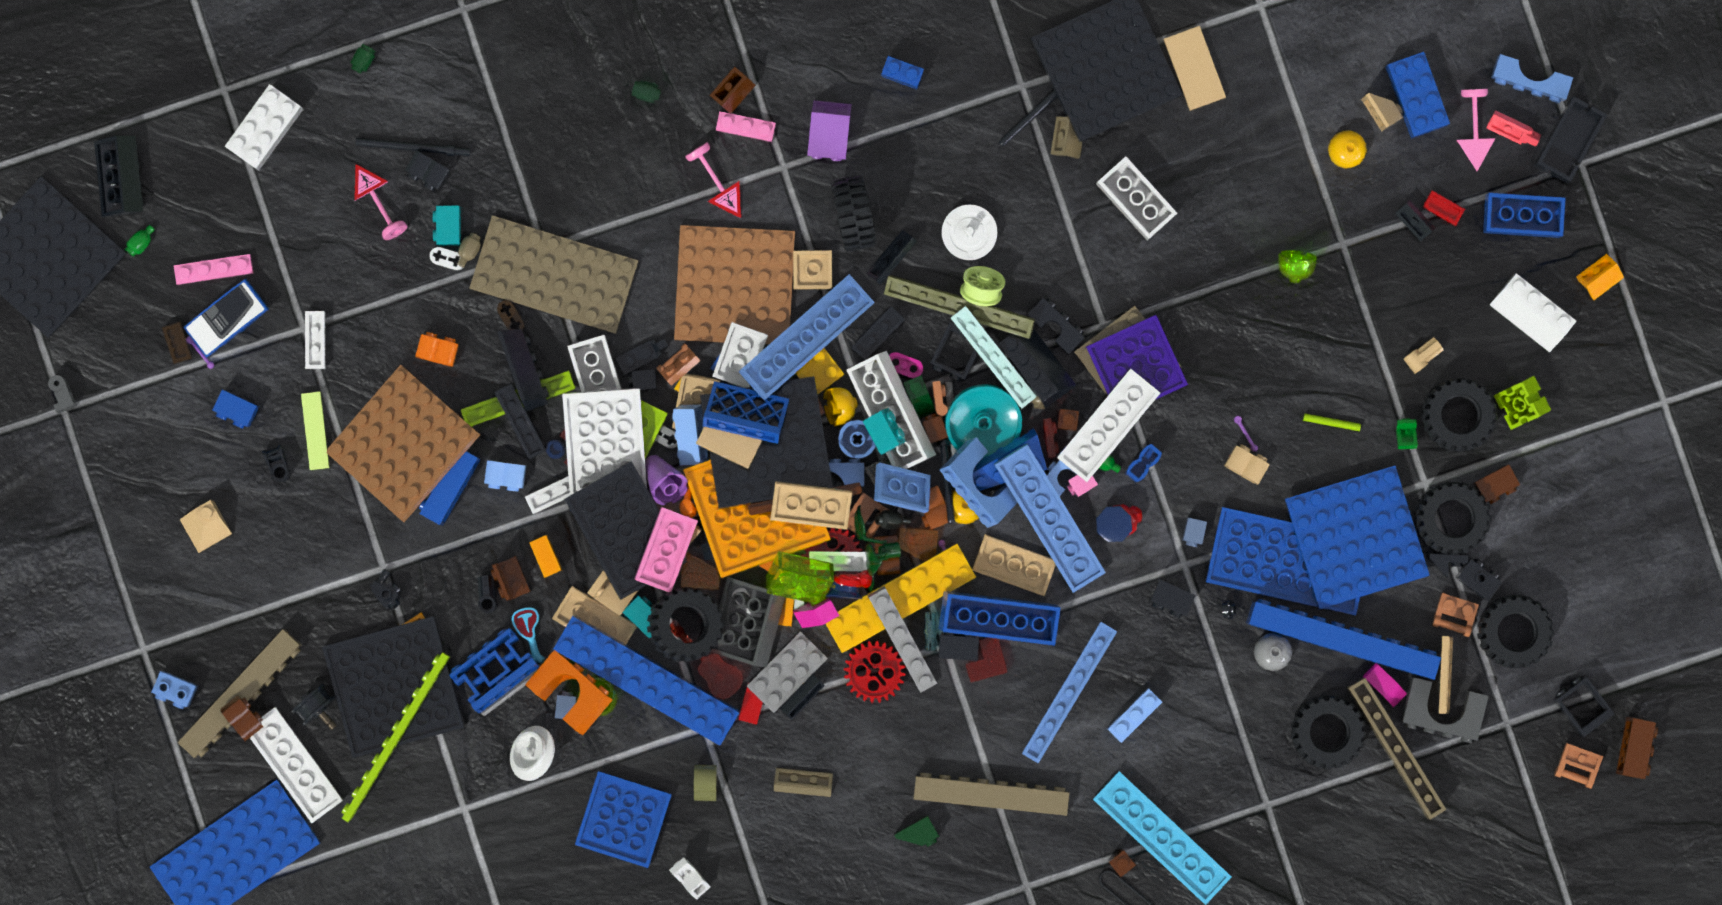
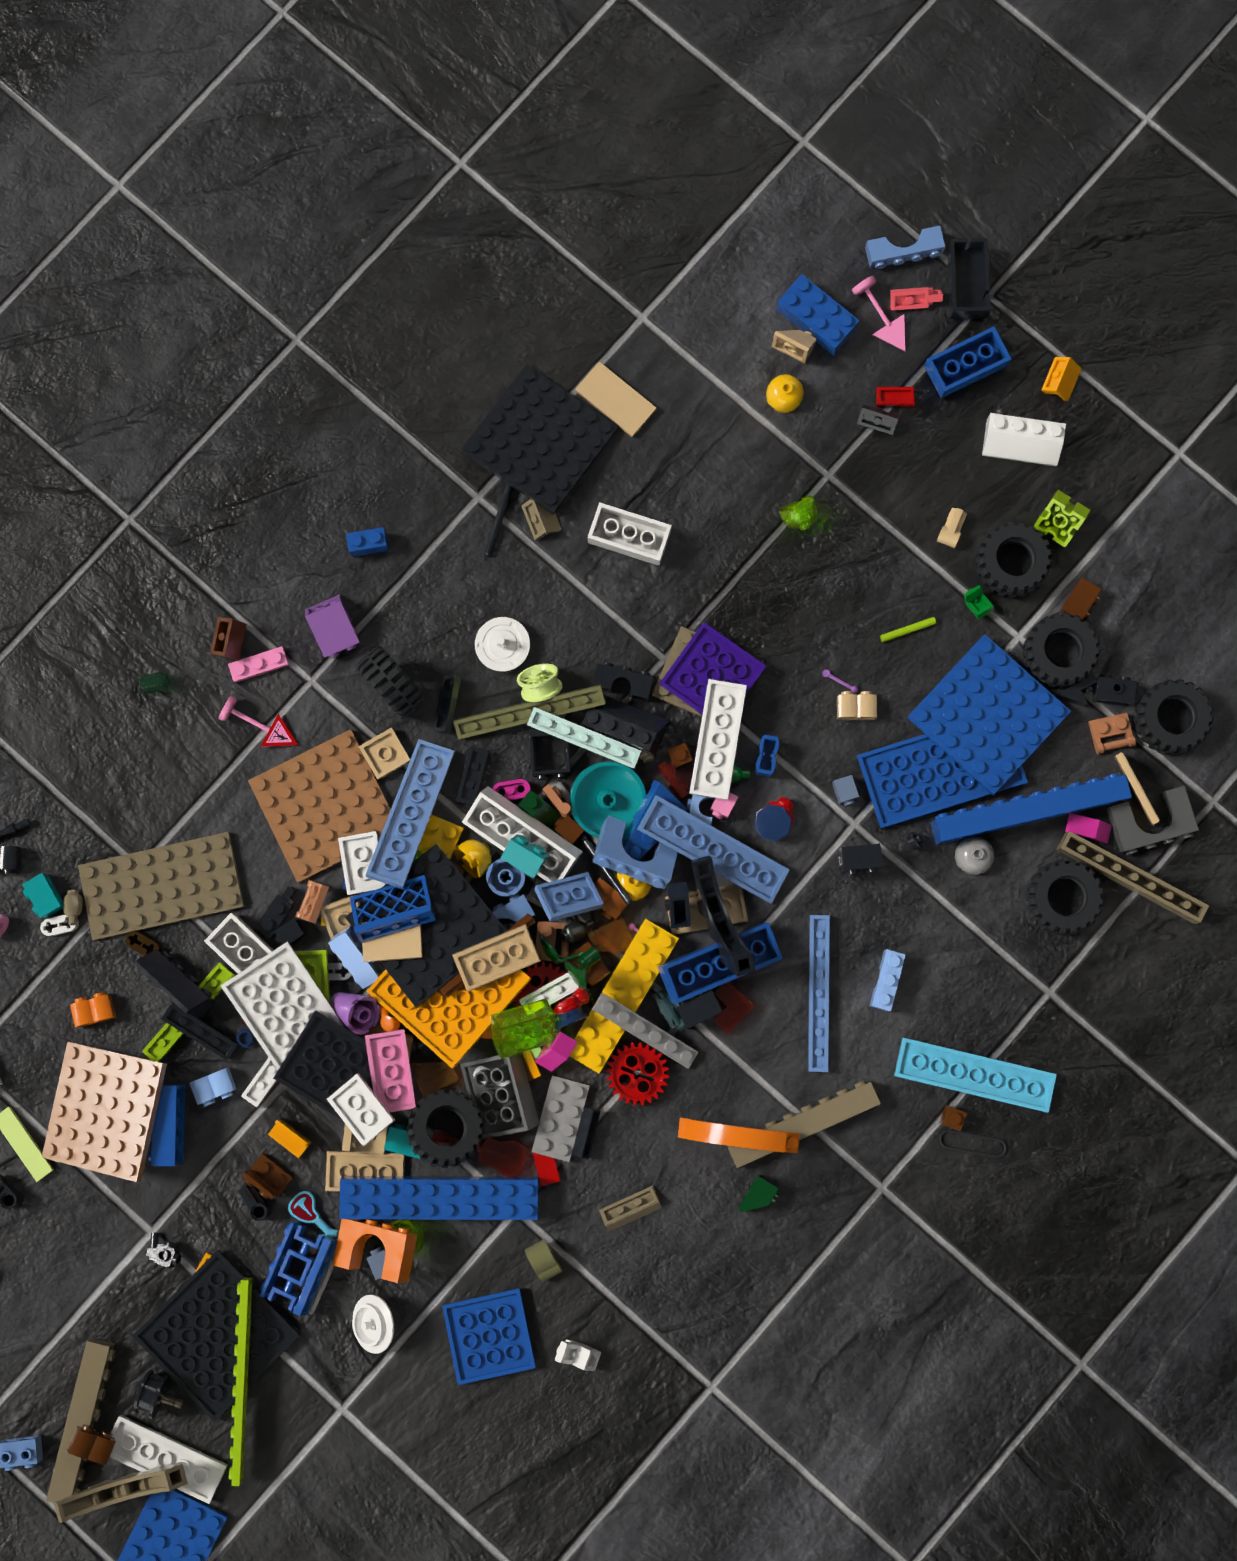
camera: 20 degrees left, 5 degrees down
(249, 769) = (108, 1492): none -> dark tan arch
(624, 568) = (360, 1109): none -> white plate
(930, 773) = (738, 1136): none -> orange arch
(992, 548) = (678, 905): none -> black brick
(1020, 563) = (711, 905): none -> black arch

